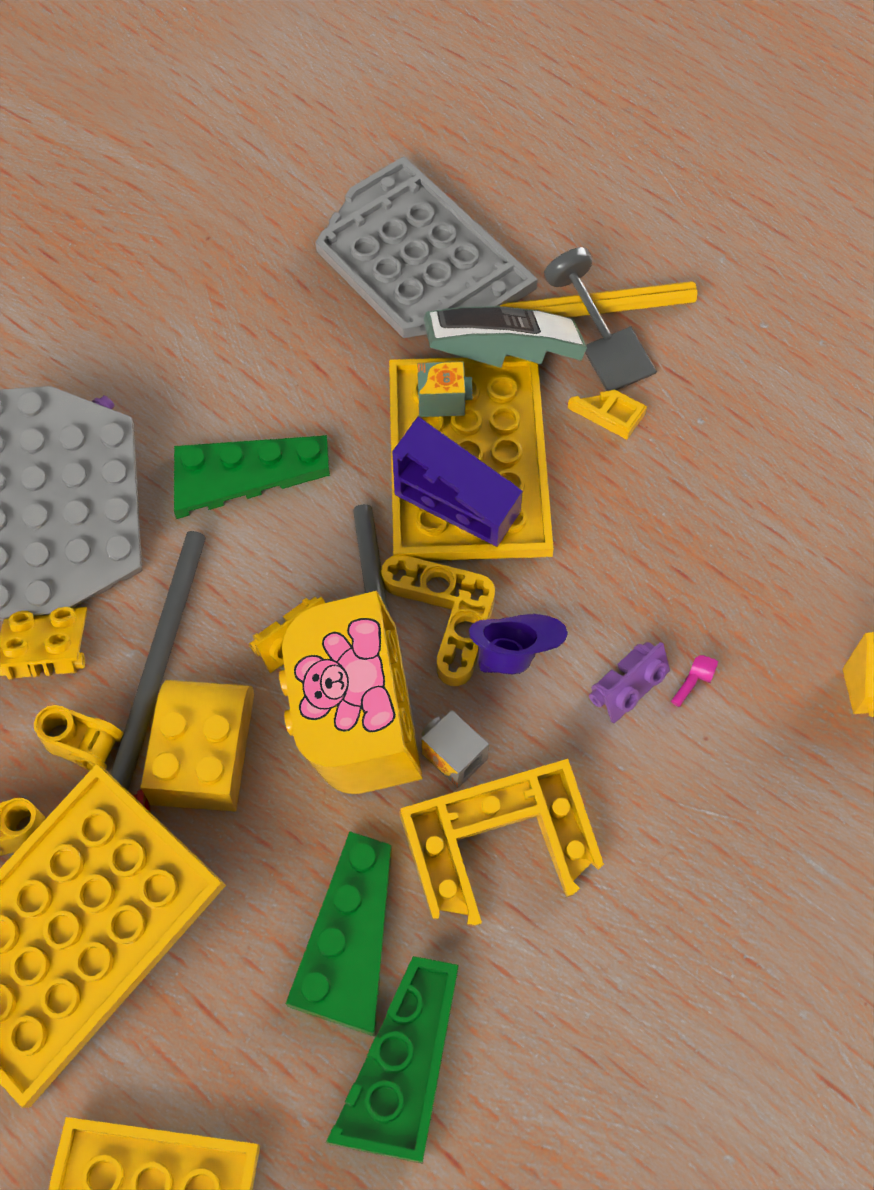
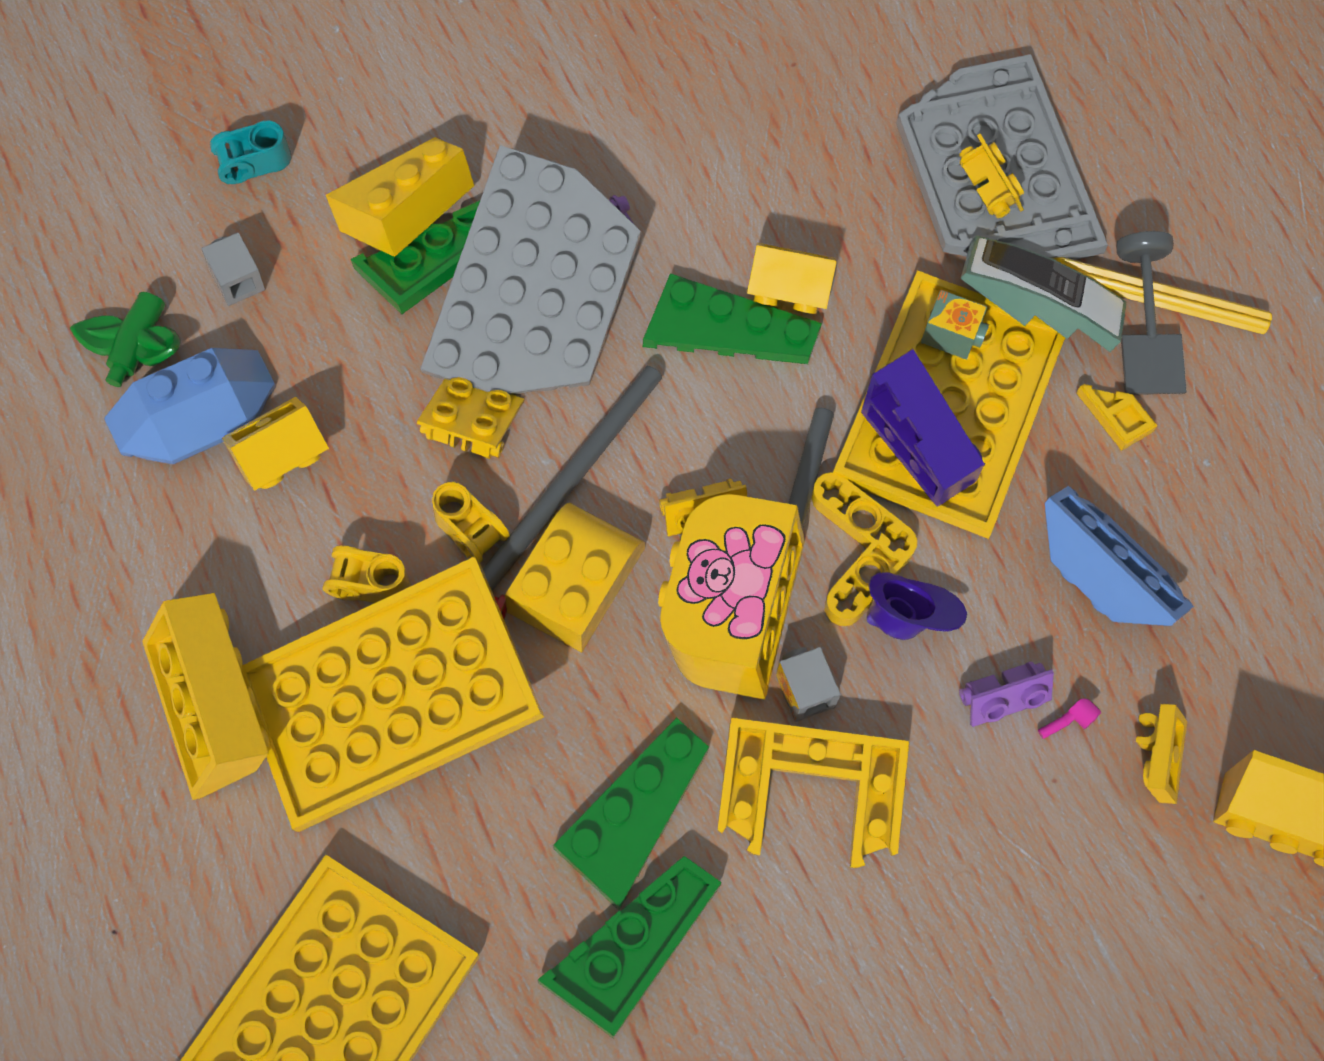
camera: 20 degrees right, 5 degrees up
(283, 406) = (791, 277): none -> yellow brick
(429, 267) = (984, 164): none -> yellow hinge
(665, 535) = (1110, 564): none -> medium blue wedge
(783, 661) = (1167, 747): none -> yellow plate

